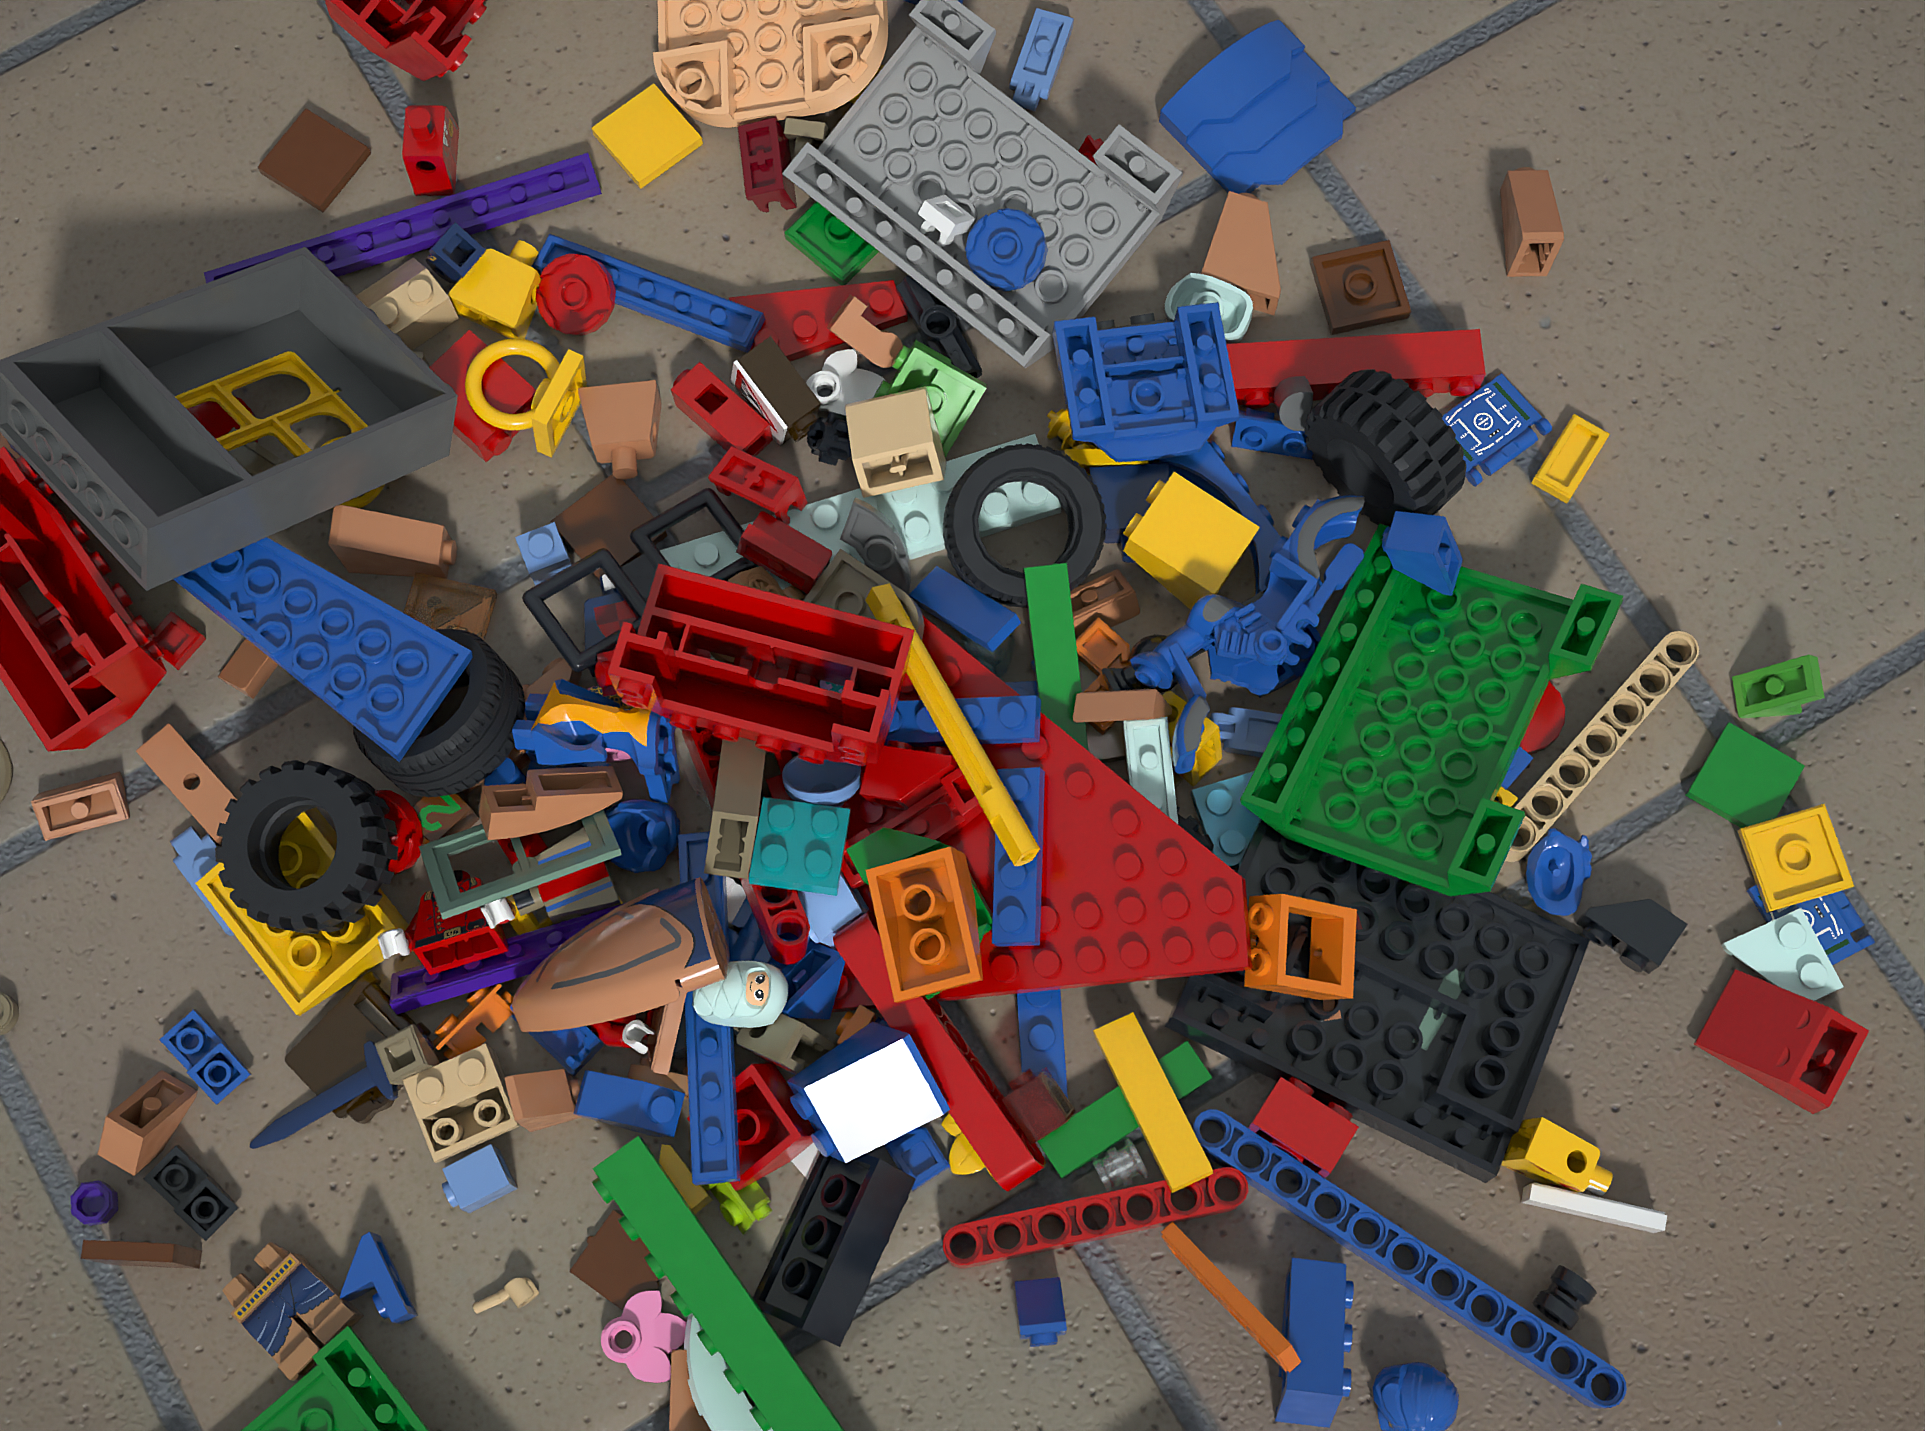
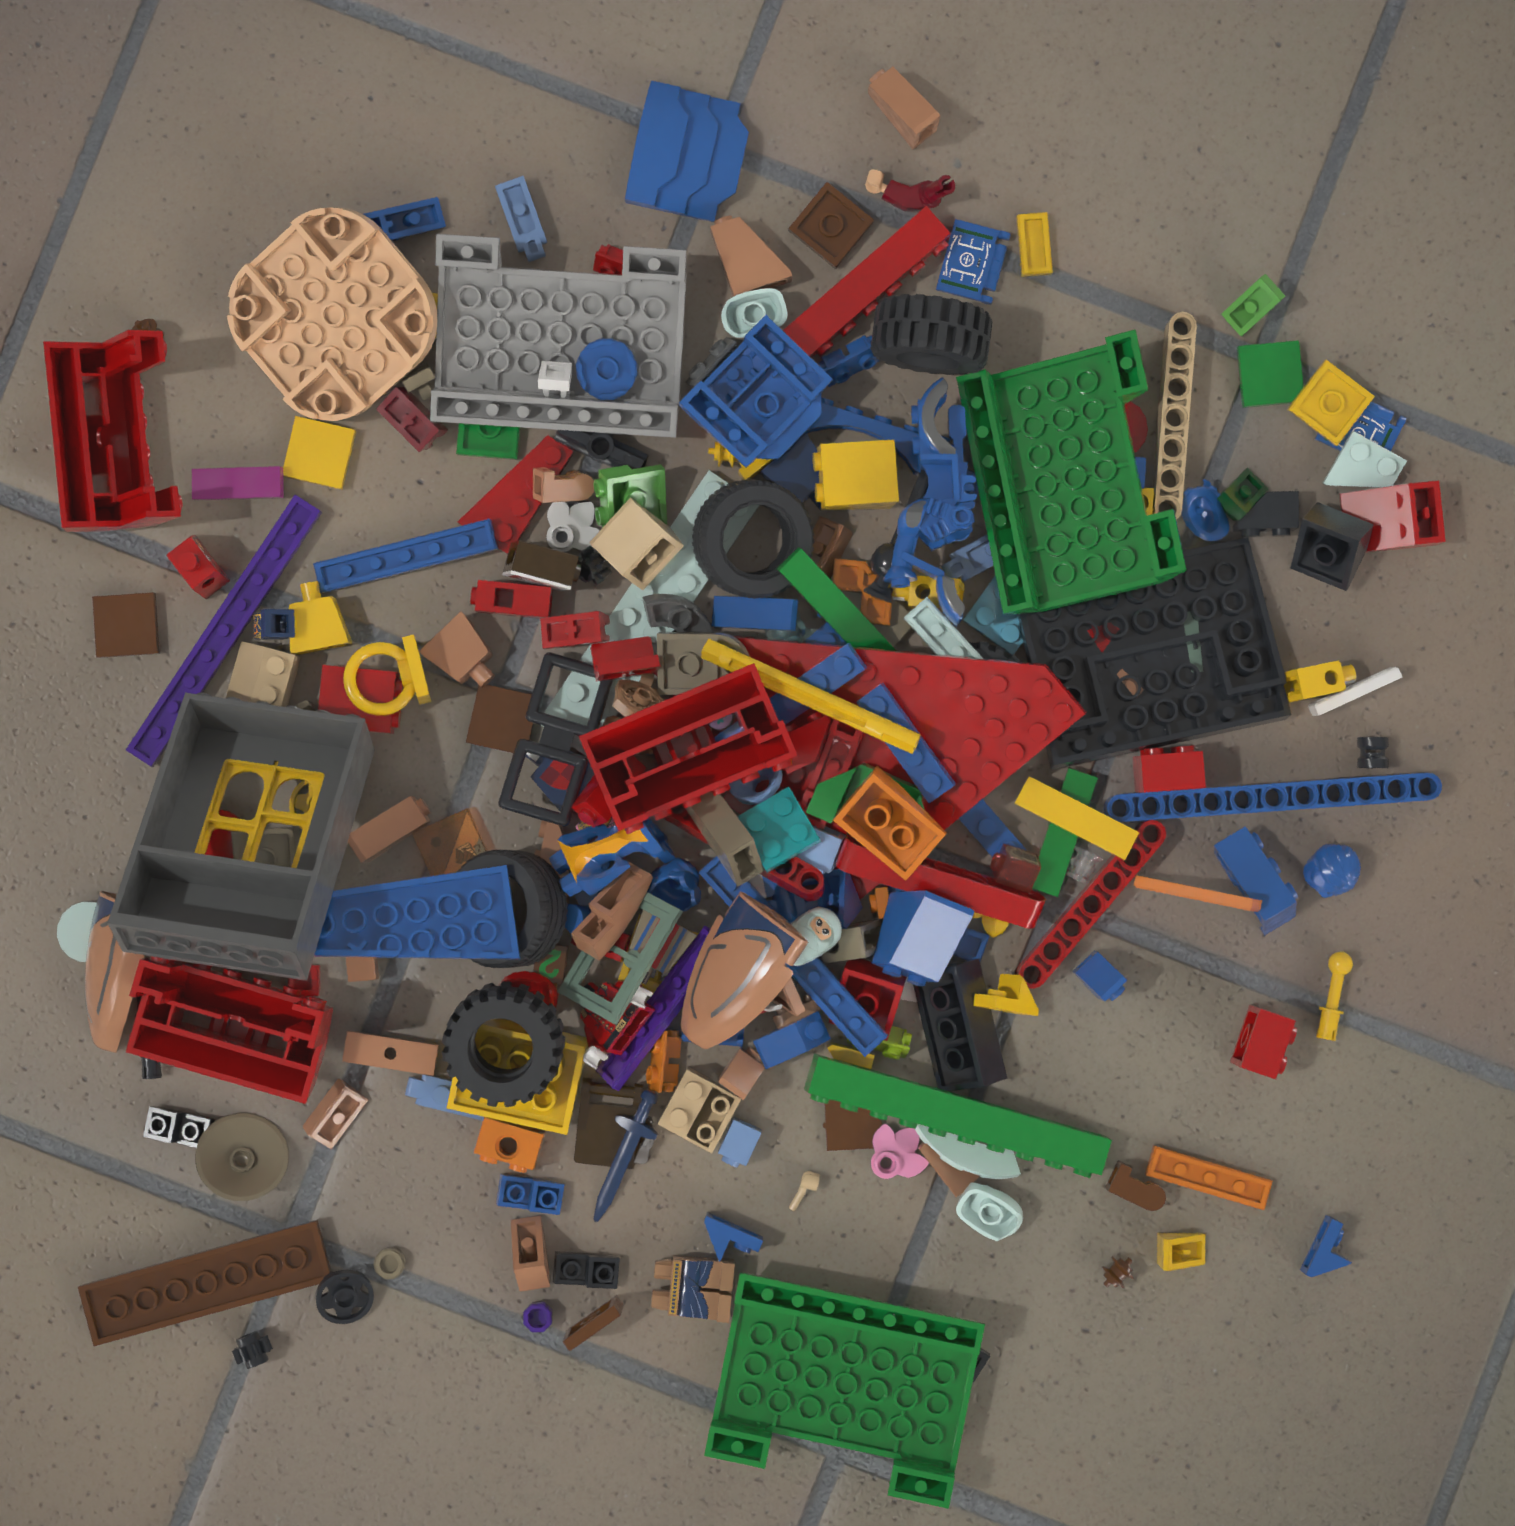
camera: 45 degrees left, 15 degrees up
(248, 998) = (527, 1139): none -> orange brick
(405, 1054) = (648, 1109): dark tan slope -> none
(541, 104) = (237, 483): none -> magenta tile
(543, 552) = (482, 766): medium blue brick -> none
(575, 294) = (364, 591): red tile -> none
(916, 1253) = (1011, 997): none -> yellow slope
(1120, 705) = (895, 611): nougat slope -> none
(1293, 402) = (852, 339): dark grey brick -> none
(1330, 947) = (1116, 663): orange window -> none
(1423, 550) = (997, 380): blue slope -> none
(1466, 314) = (910, 197): none -> dark red arm
(1614, 882) = (1242, 494): none -> dark green slope
(1683, 1015) = (1331, 545): none -> black slope

